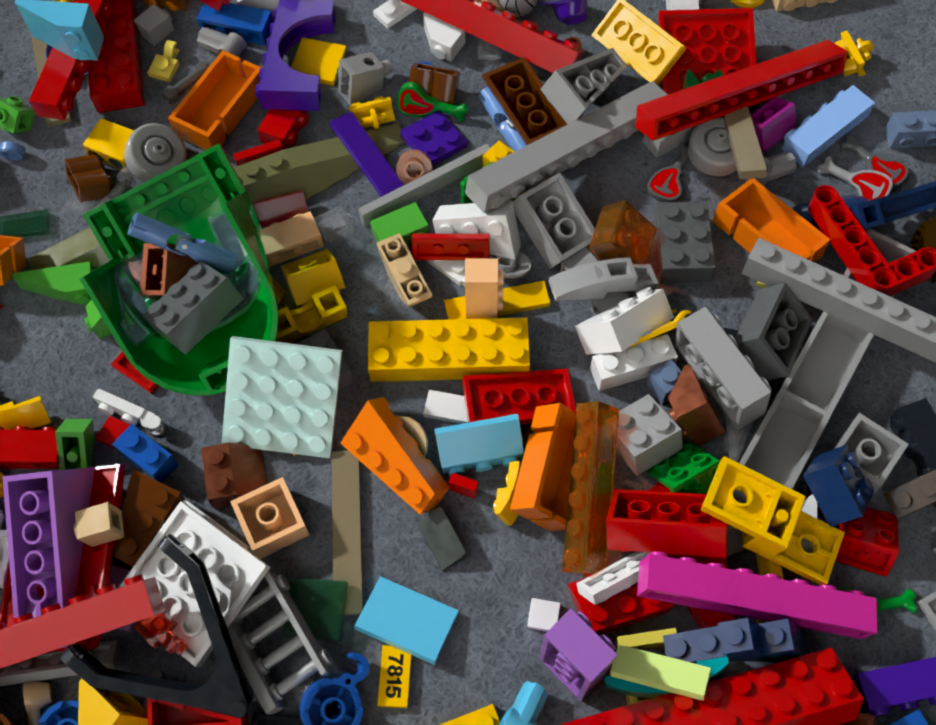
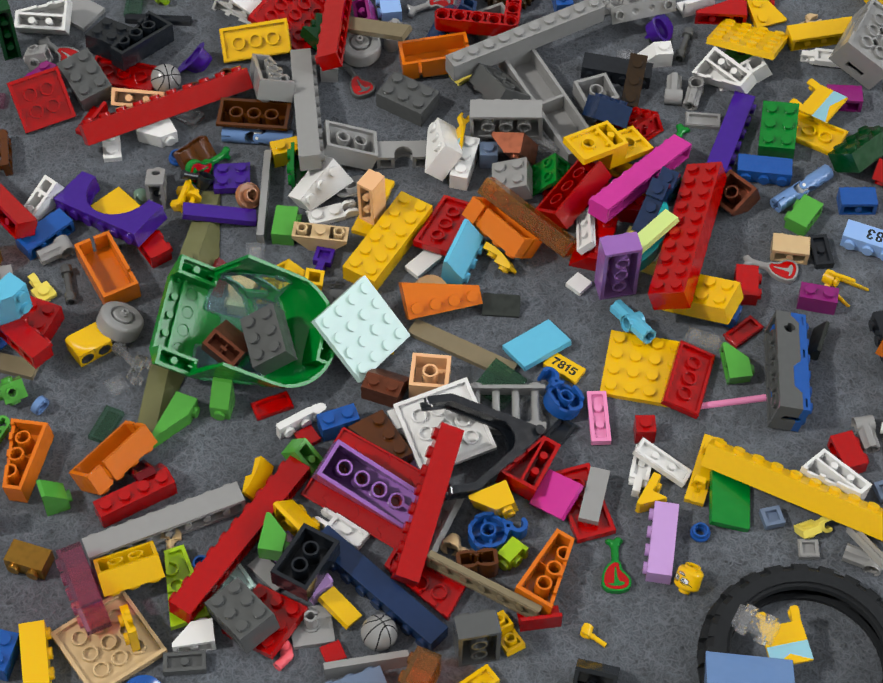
camera: 60 degrees left, 10 degrees down
(88, 177) = (104, 368): reddish brown brick -> none
(99, 524) = (379, 446): tan brick -> none
(158, 631) = (466, 450): clear red plate -> none
(199, 250) = (221, 319): medium blue piece -> none
(257, 152) = (168, 264): red tile -> none
(379, 295) = (323, 258): none -> dark purple plate
(408, 111) = (203, 179): none -> black bar
(450, 246) = (324, 201): red tile -> none
(463, 485) = (479, 277): red tile -> none
(600, 277) = (407, 142): light grey slope -> none
(622, 234) = (386, 120): clear orange brick -> none

